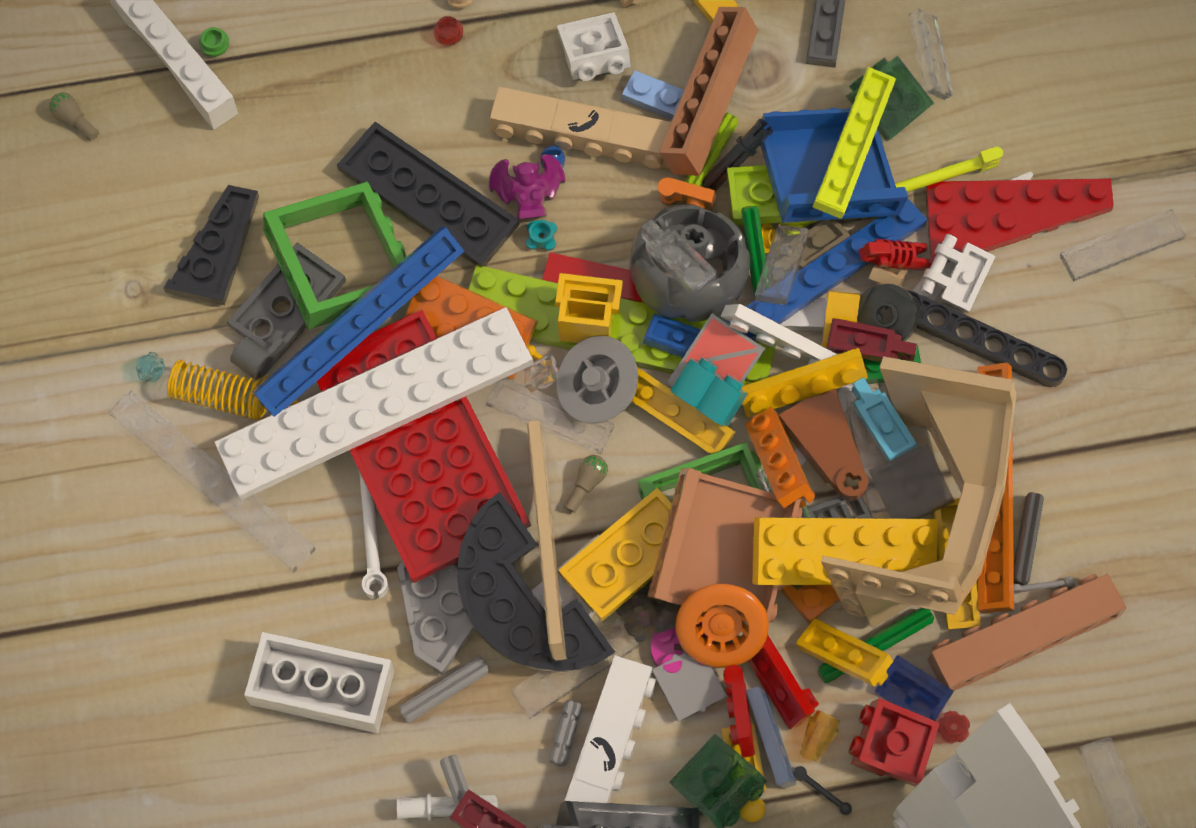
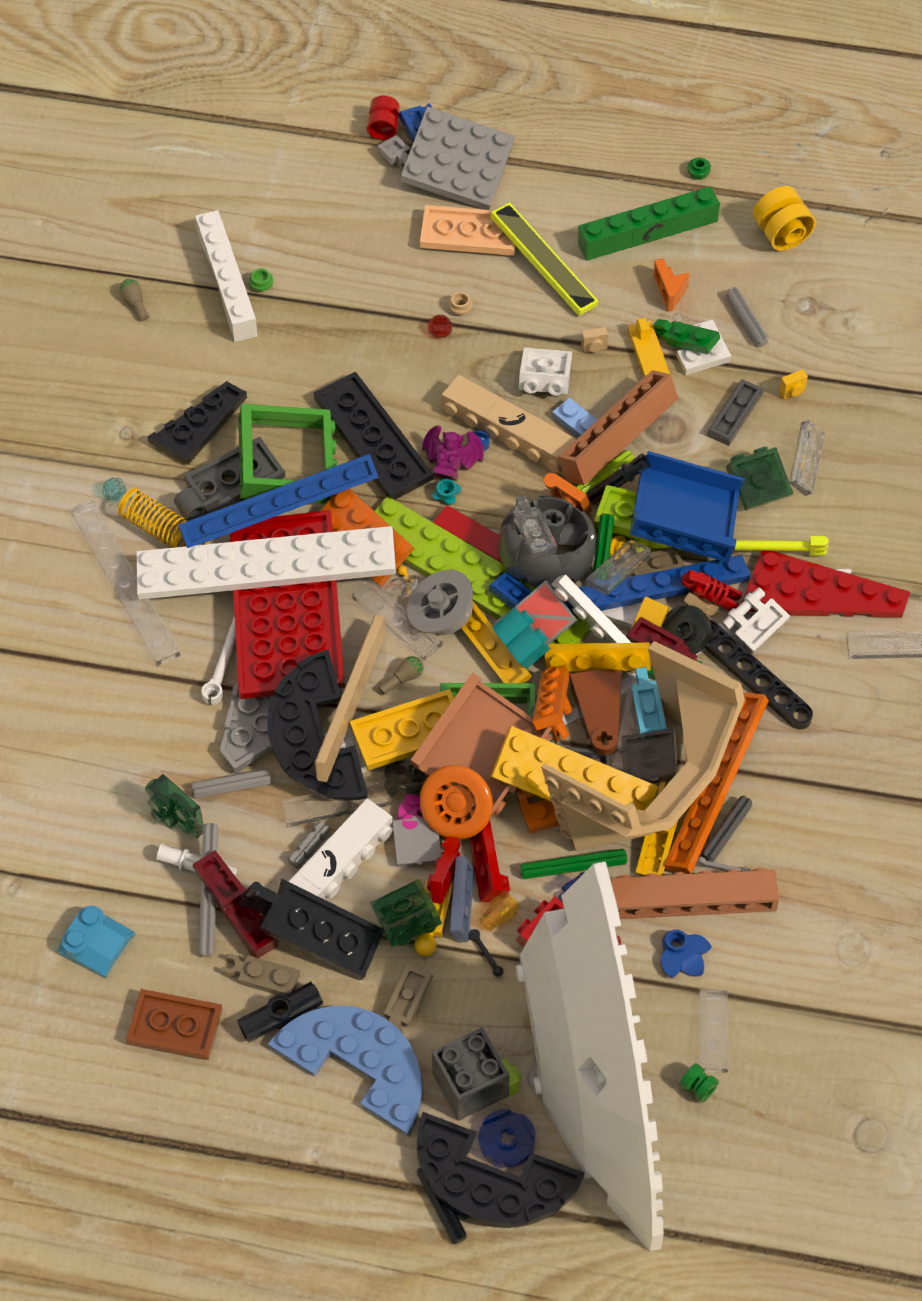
camera: 20 degrees right, 10 degrees down
(319, 682) = (139, 741): white brick -> none
(387, 747) = (174, 807): none -> clear green plate
(586, 306) = (453, 547): yellow plate -> none
(845, 652) = (544, 857): yellow hinge -> none
(854, 143) = (709, 494): neon yellow tile -> none
(1047, 711) = (686, 957): none -> blue plate

